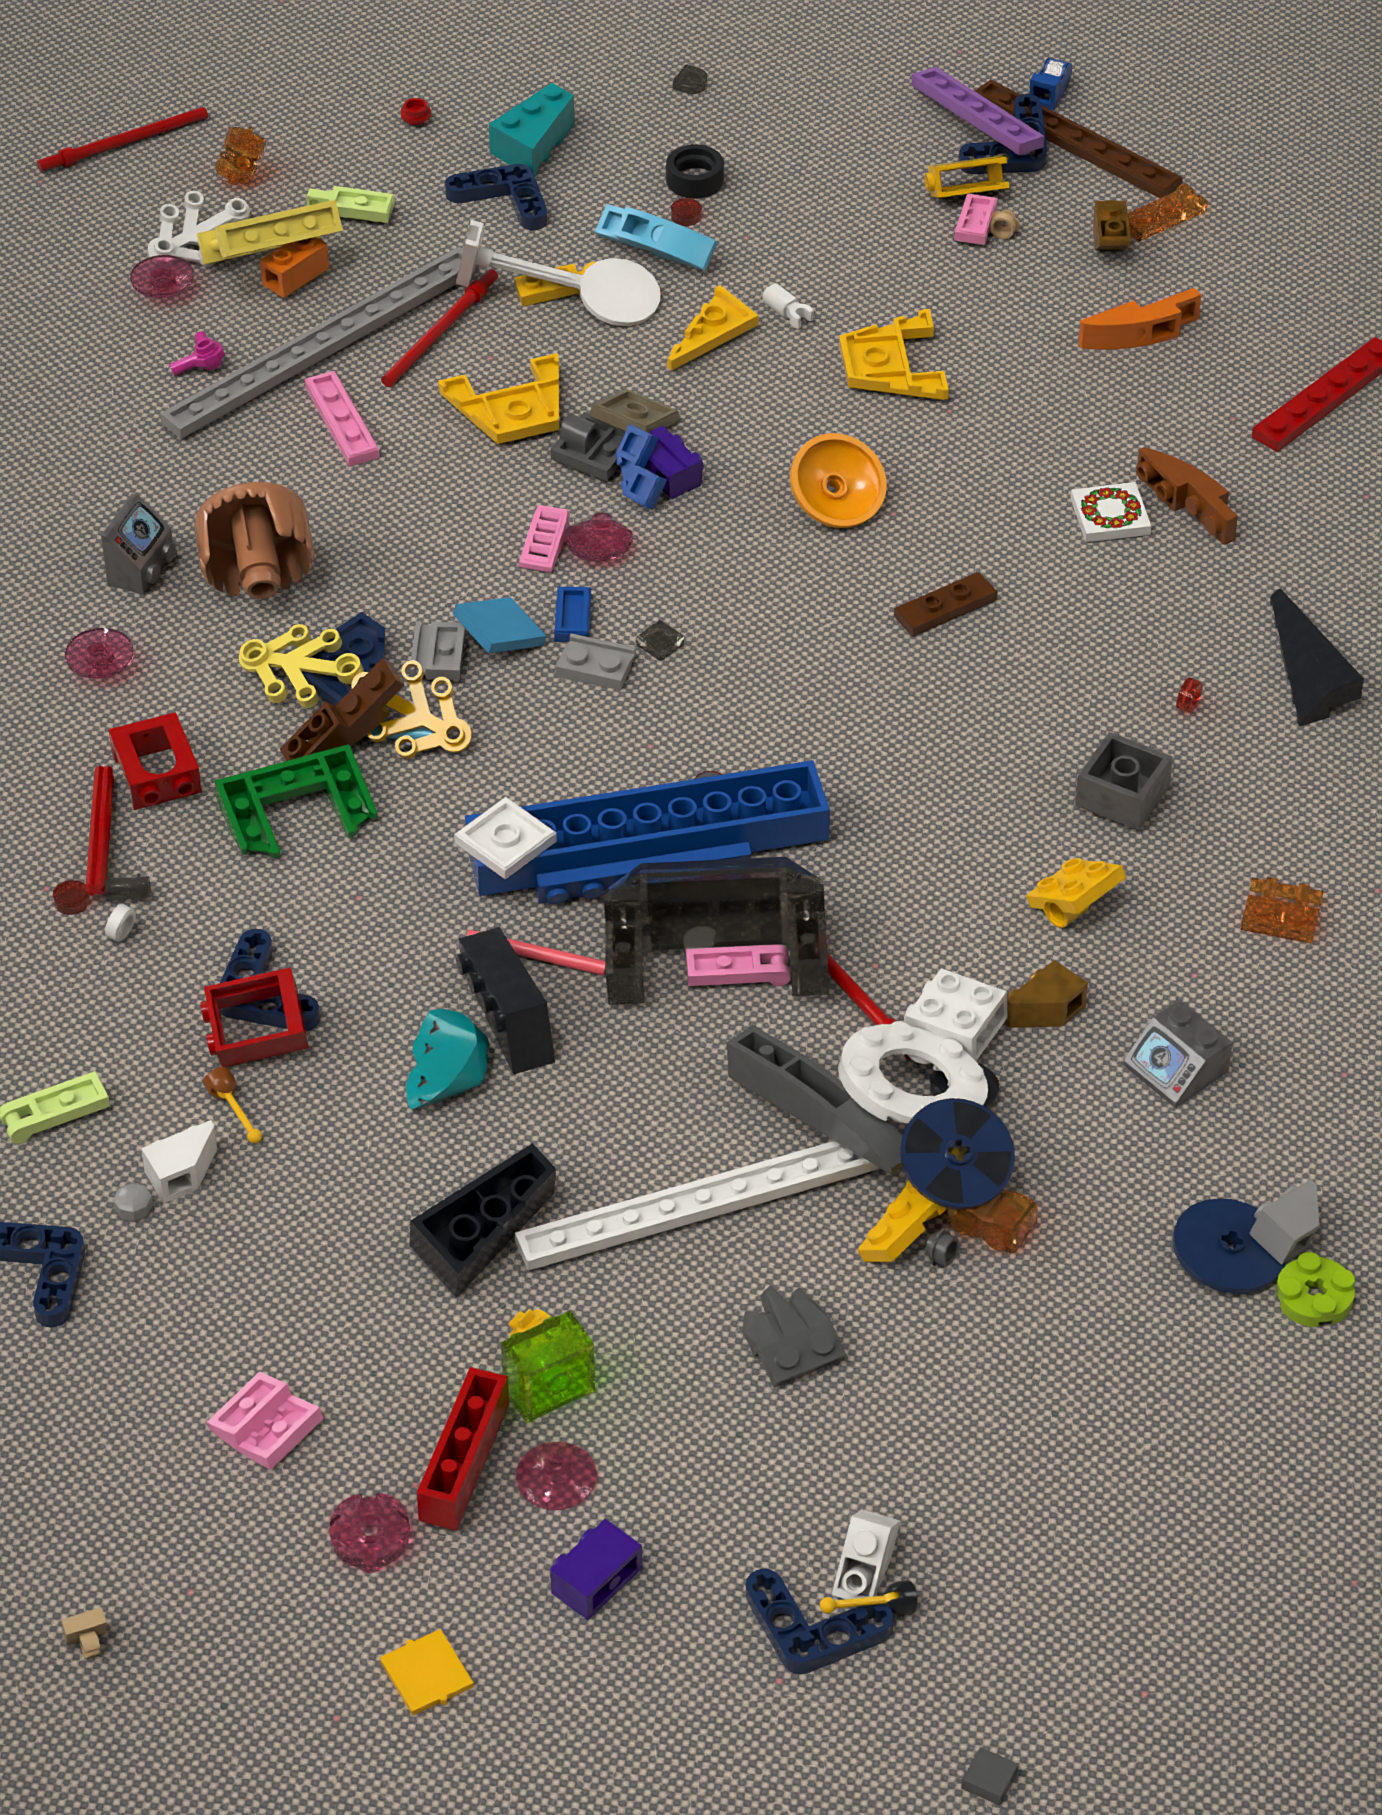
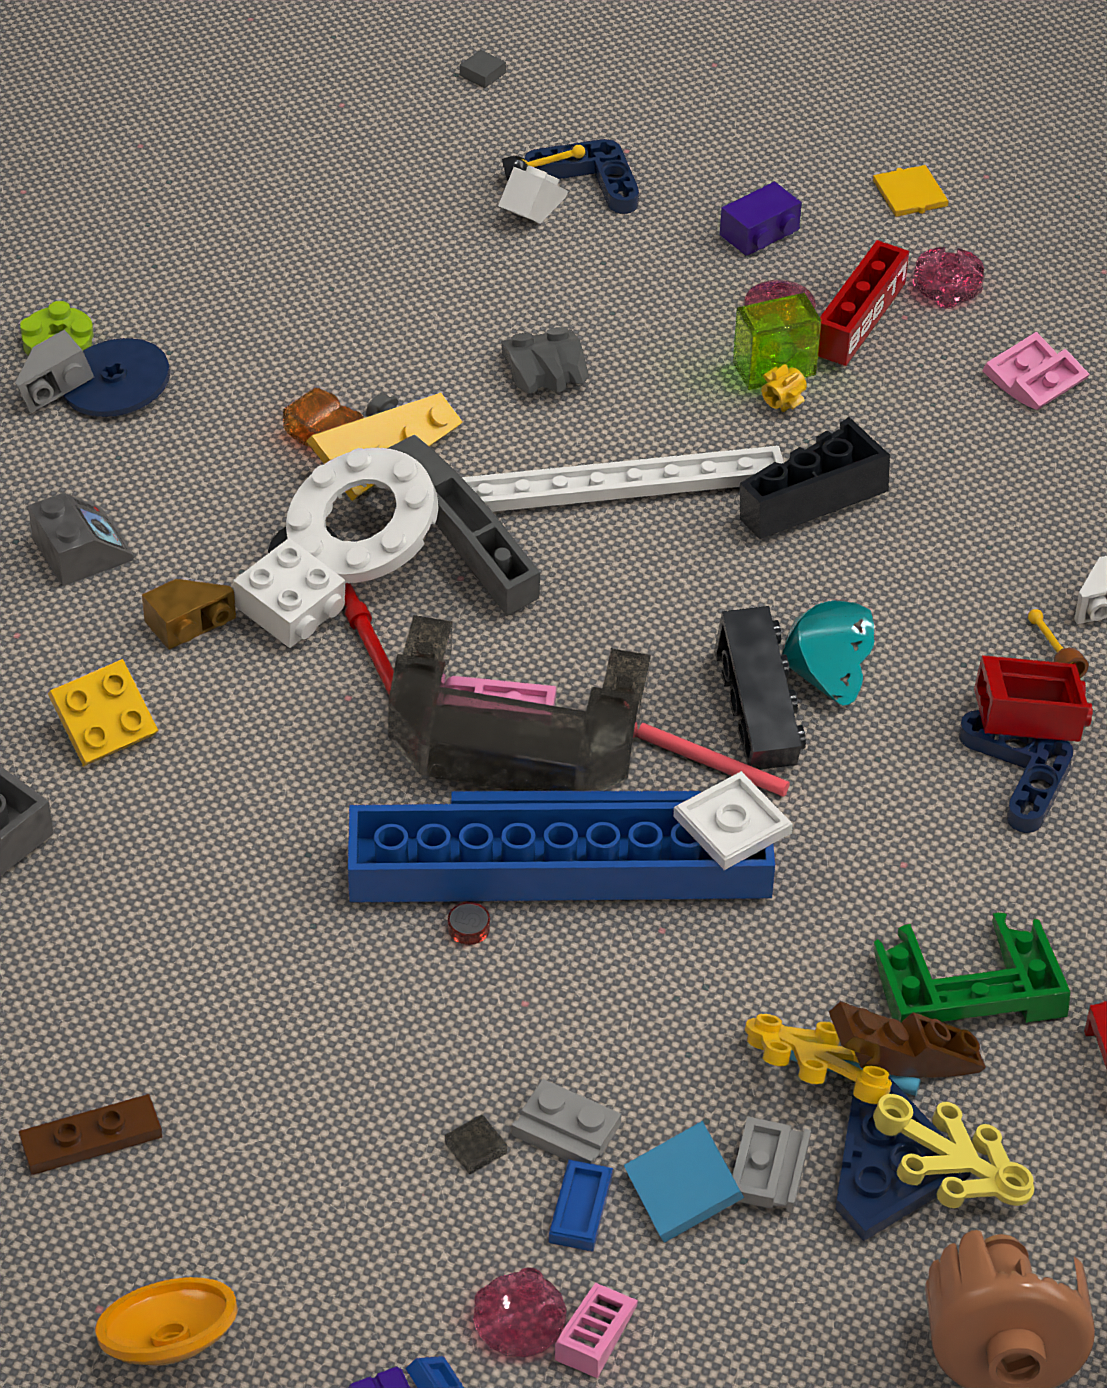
camera: 170 degrees left, 0 degrees up
(937, 1173) = (347, 427): dark blue piece -> none

